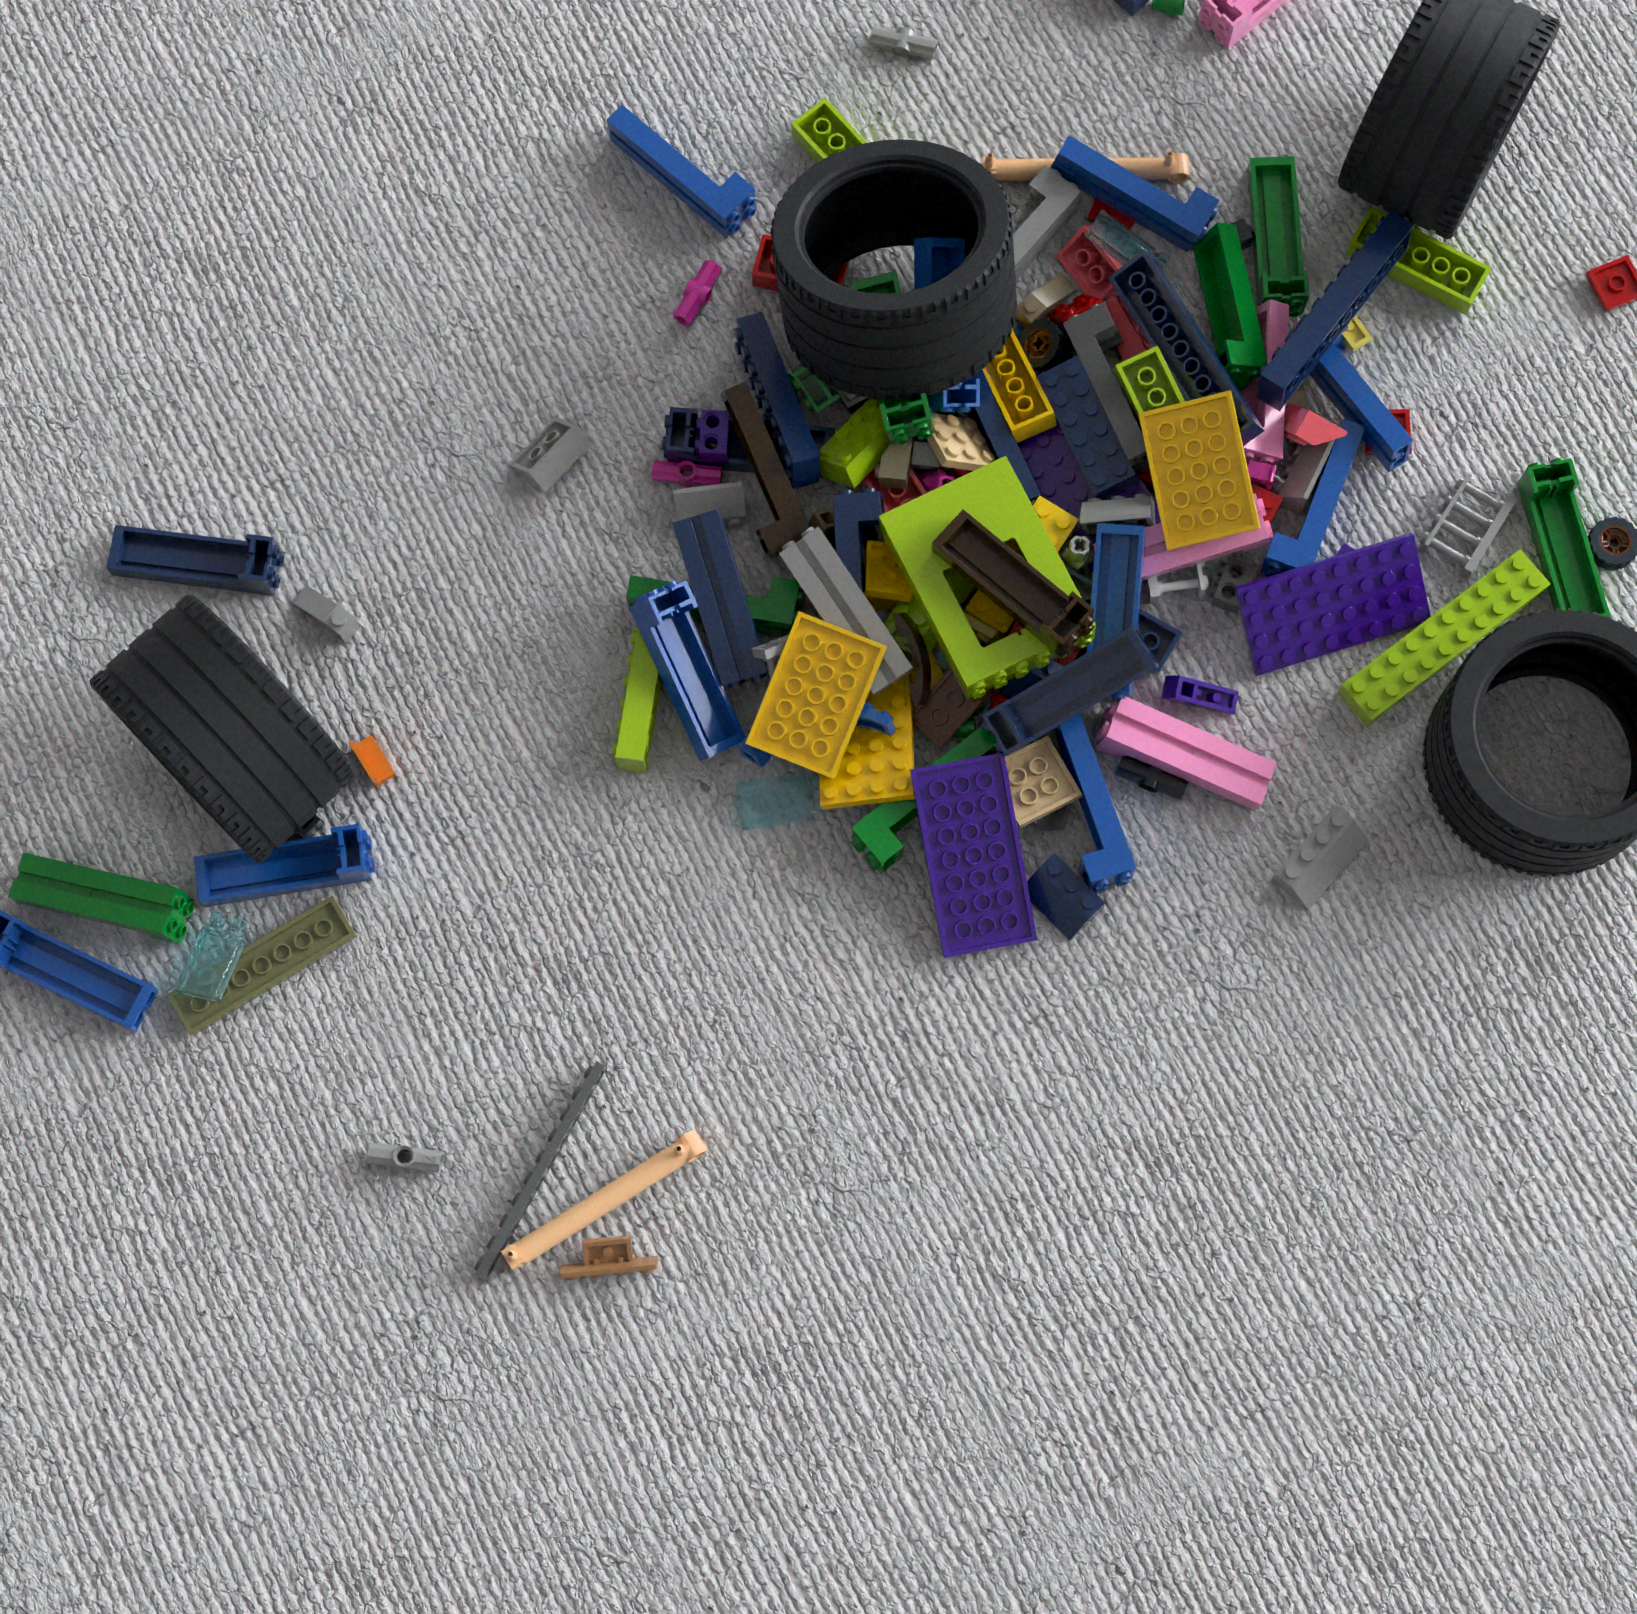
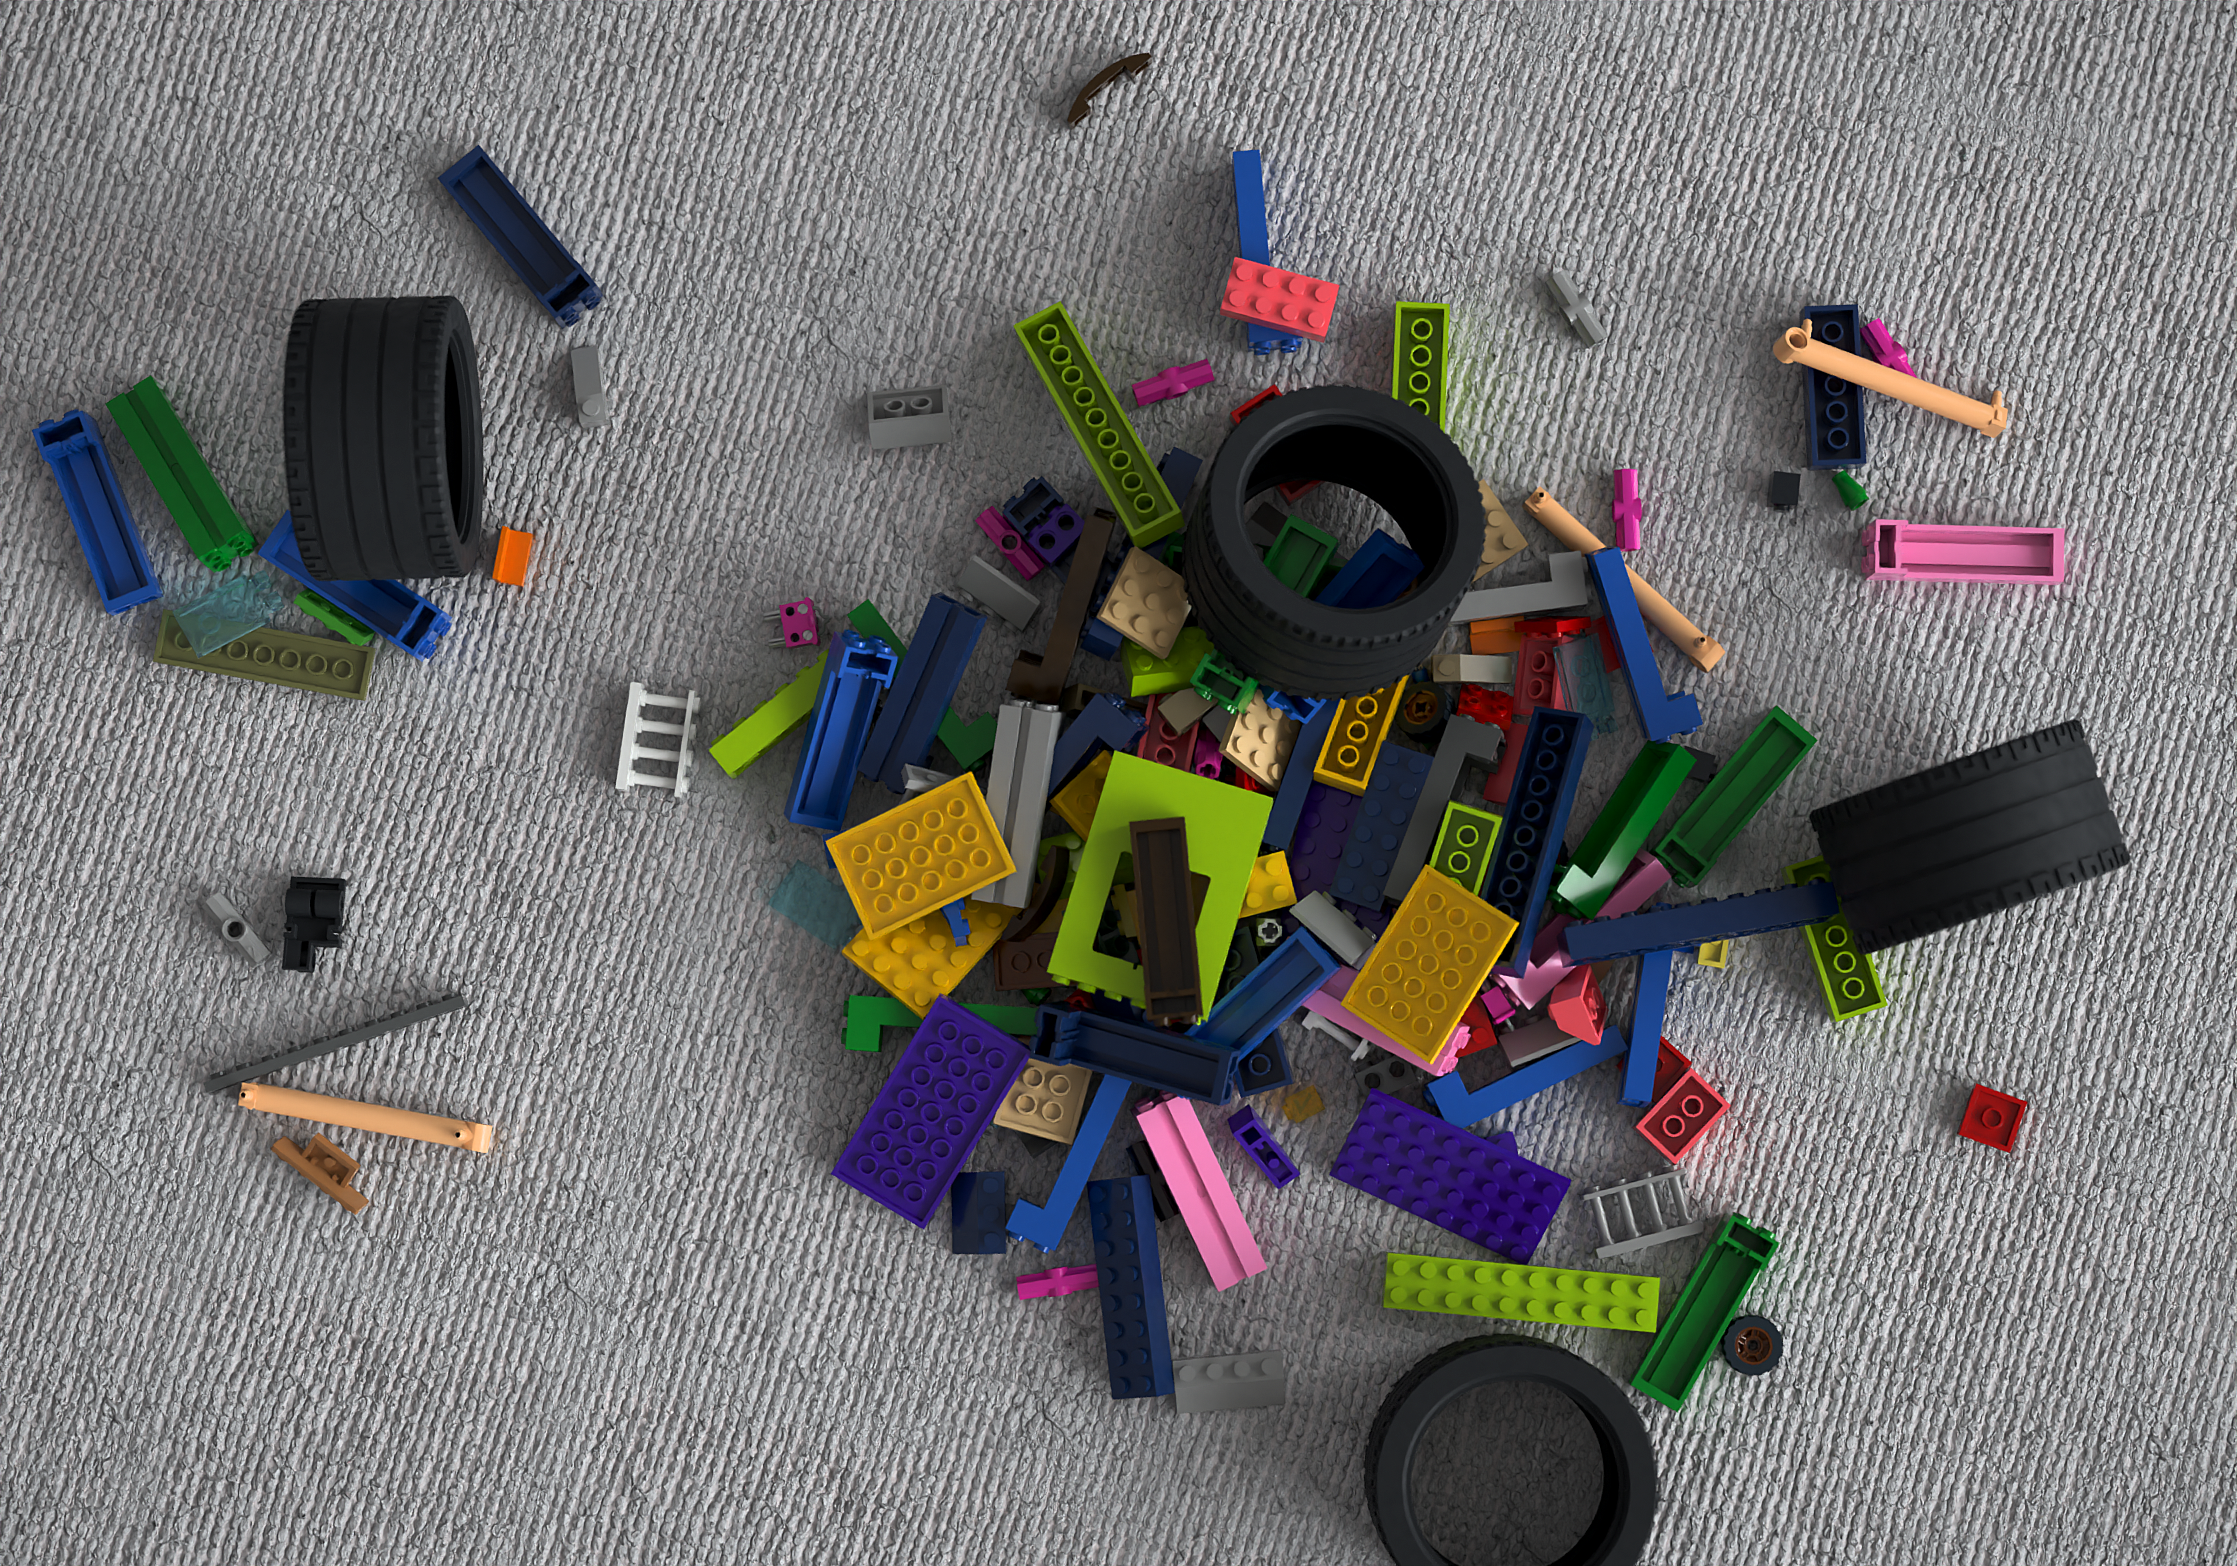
camera: 40 degrees right, 10 degrees up
(287, 901) = (334, 617): none -> bright green plate
(451, 1104) = (313, 916): none -> black plate
(491, 135) = (1130, 65): none -> dark brown slope
(551, 791) = (635, 724): none -> white fence
(599, 638) = (801, 623): none -> dark pink piece
(678, 344) = (1099, 425): none -> lime brick
(719, 175) = (1279, 299): none -> coral brick
(812, 415) = (1146, 603): none -> tan plate
(1040, 267) = (1494, 636): none -> orange panel
(1045, 127) = (1626, 509): none -> dark pink piece
(1070, 227) = (1552, 626): none -> red plate
(1130, 37) = (1783, 491): none -> black brick
(1153, 894) = (1057, 1281): none -> dark pink piece
(1199, 646) = (1302, 1104): none -> clear yellow brick
(1204, 852) = (1130, 1287): none -> dark blue brick
(1435, 446) = (1681, 1116): none -> coral brick

